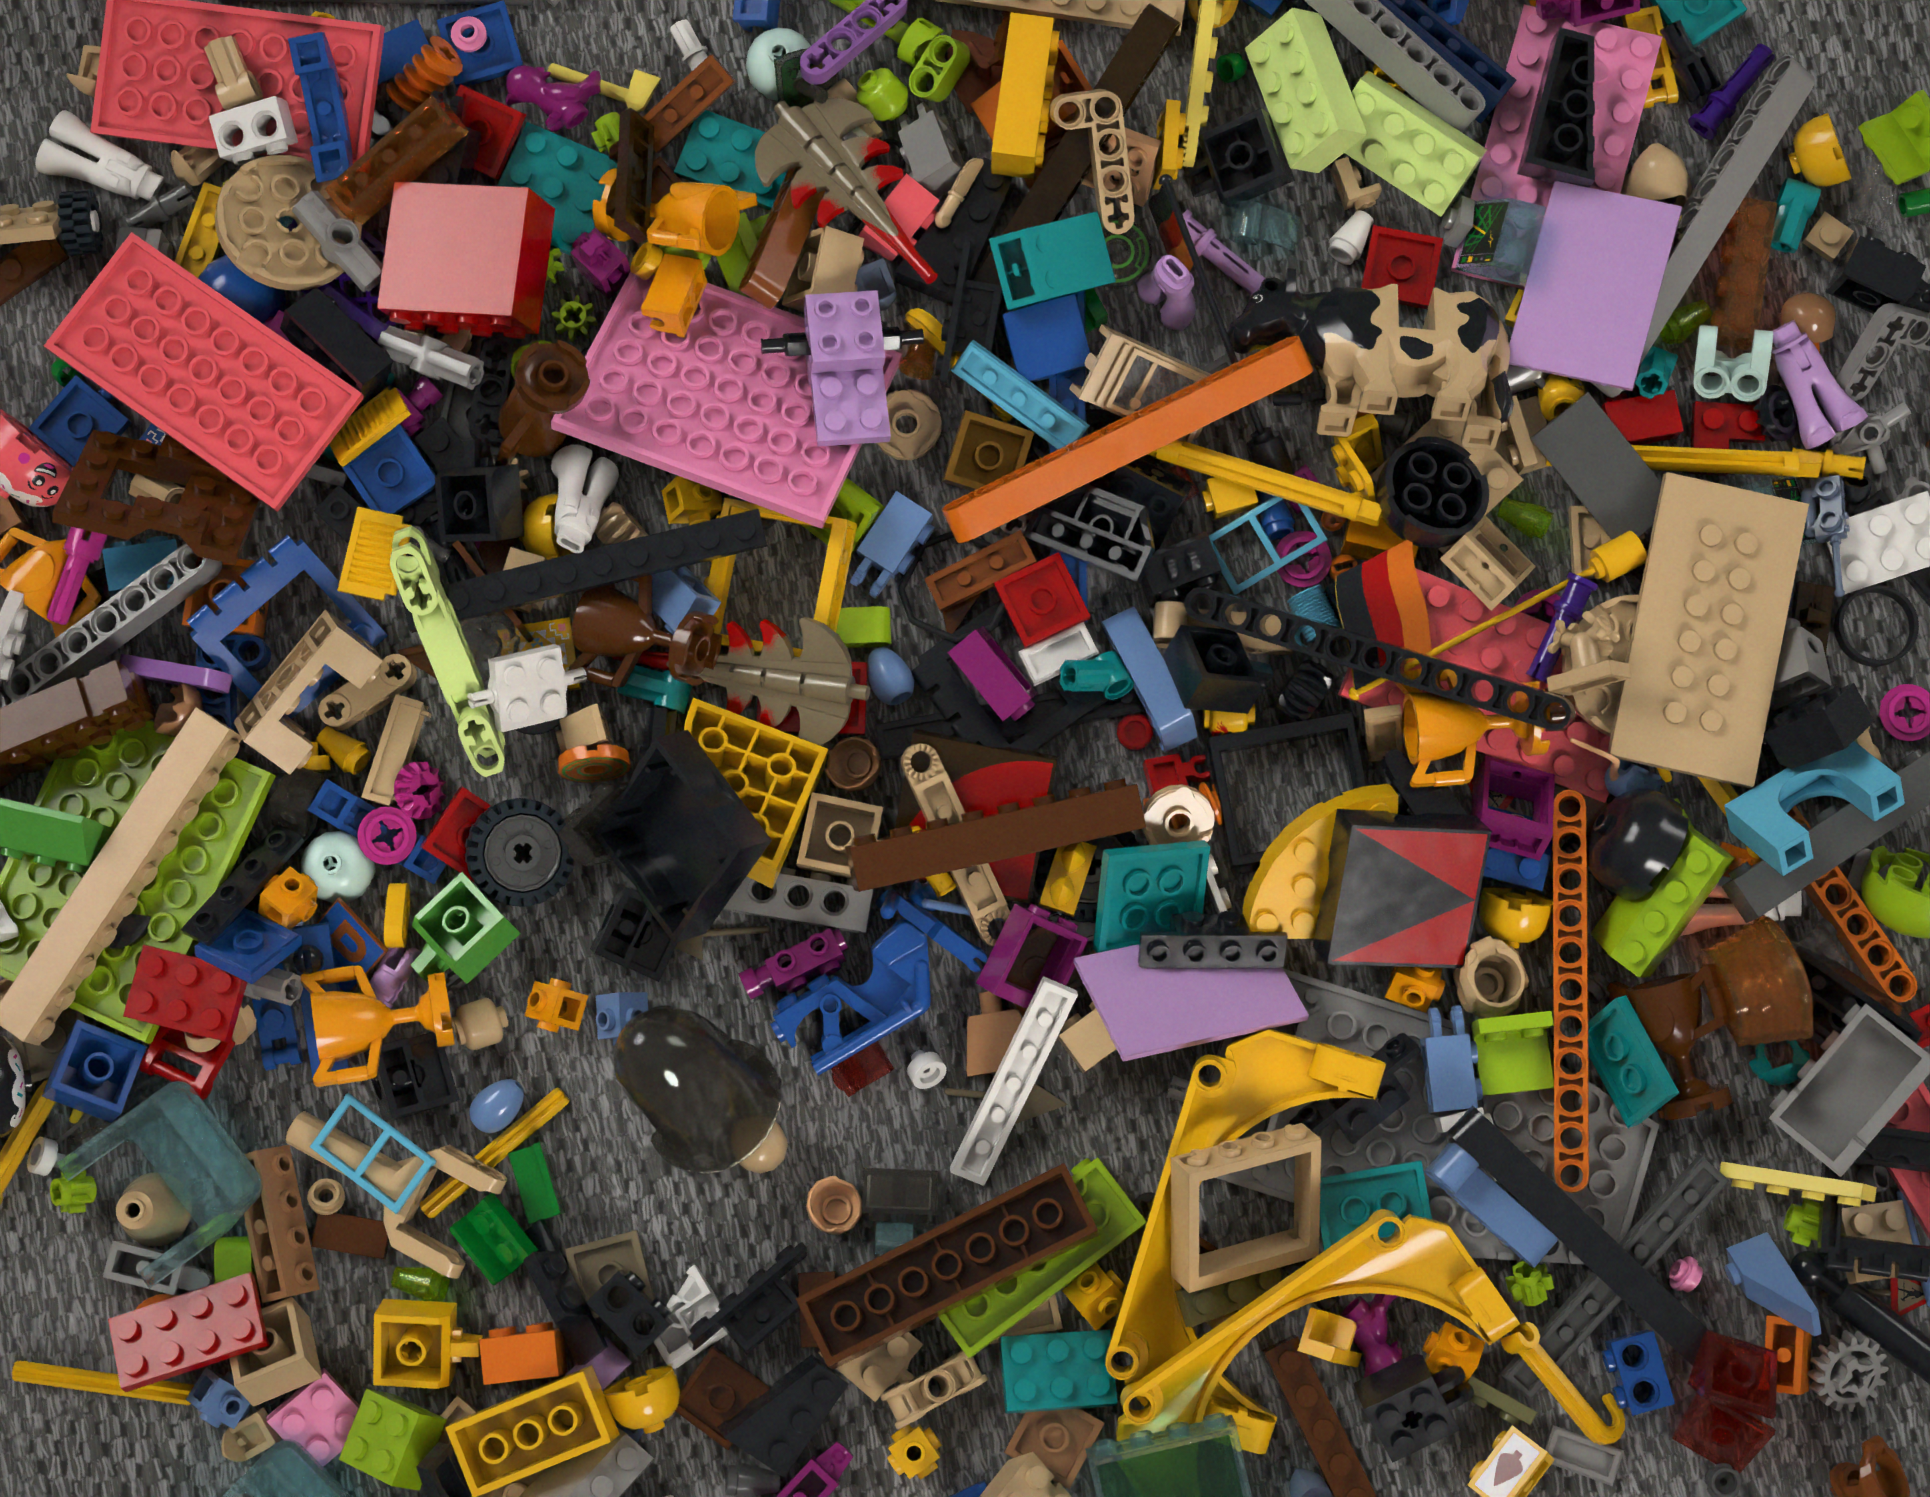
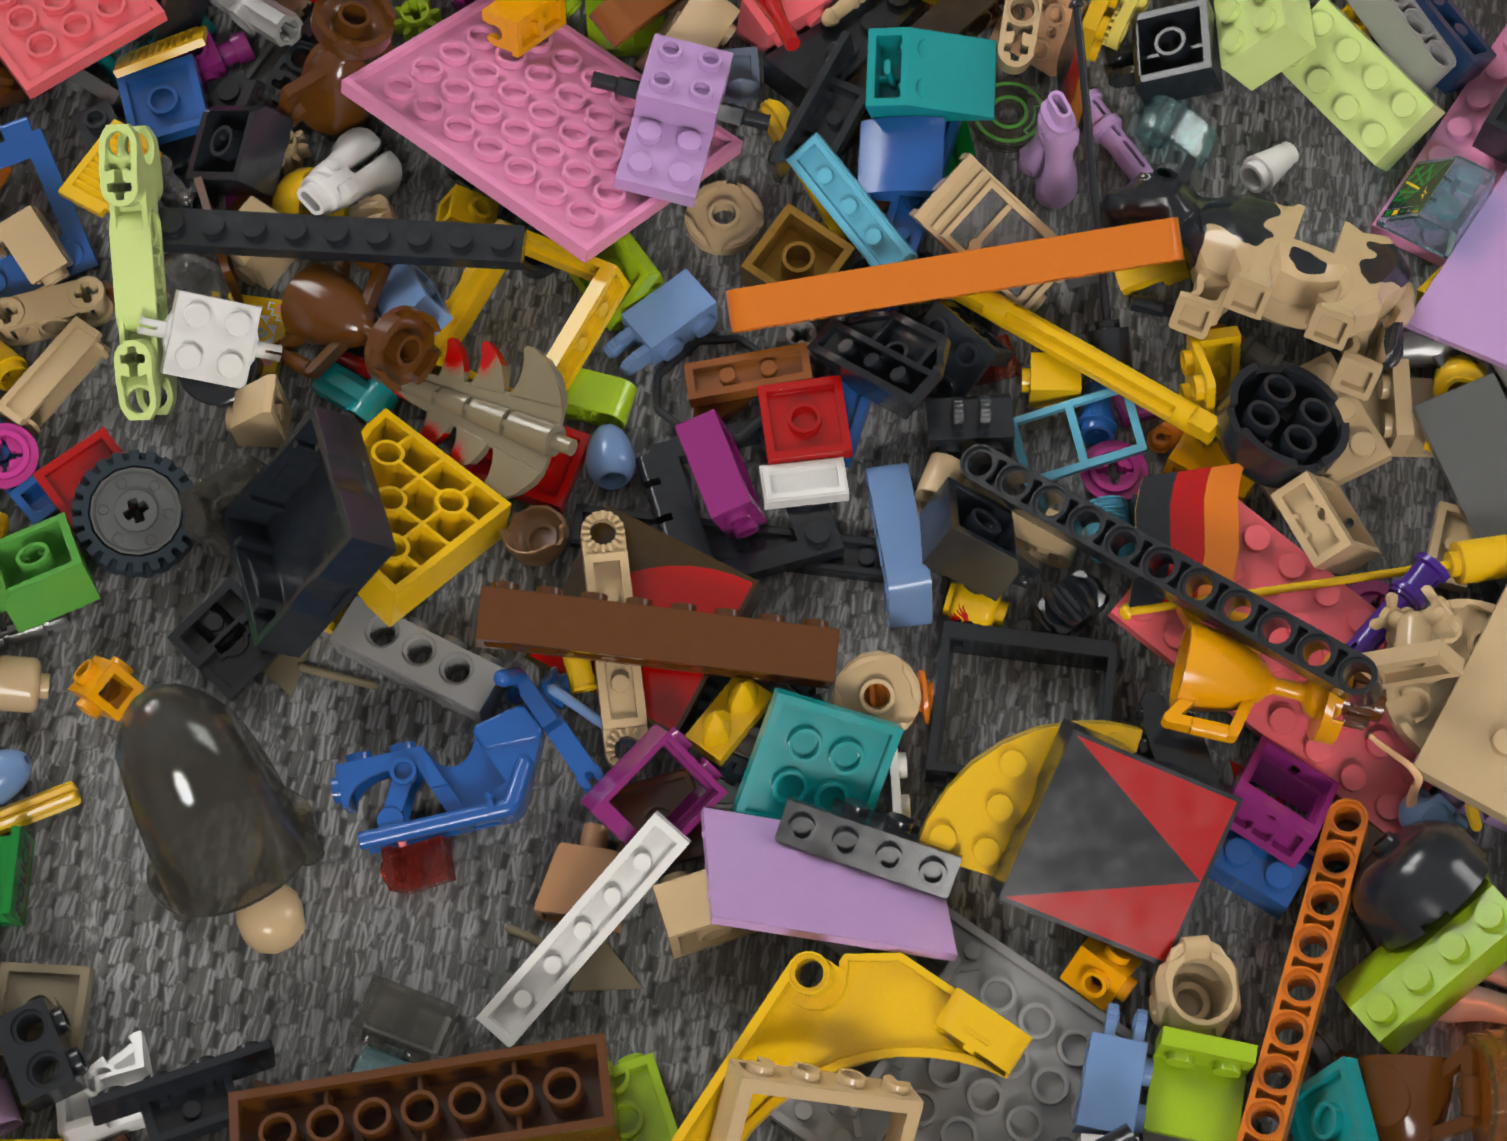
camera: 20 degrees right, 15 degrees down
(411, 778) = (49, 435): dark pink gear -> none
(594, 765) = (240, 437): orange tile -> none
(805, 964) = (394, 724): magenta brick -> none
(832, 826) = (458, 602): tan brick -> none
(834, 1205) = (324, 1011): light nougat hair -> none
(918, 361) = (753, 157): clear orange piece -> none
(926, 1069) = (492, 892): white tile -> none
(1102, 674) = (844, 516): teal piece -> none
(1134, 732) = (863, 598): red tile -> none
(1171, 771) = (894, 642): red plate -> none
(1348, 184) = (1283, 118): tan bracket -> none
(1361, 1115) = (989, 1100): black bracket -> none
(1383, 731) = (1149, 669): tan tile -> none
(1403, 260) = (1327, 202): red plate -> none
(1458, 221) = (1392, 178): light grey plate -> none
(1514, 916) = (1245, 931): yellow cylinder -> none
(1526, 517) = (1386, 501): clear neon green cone -> none

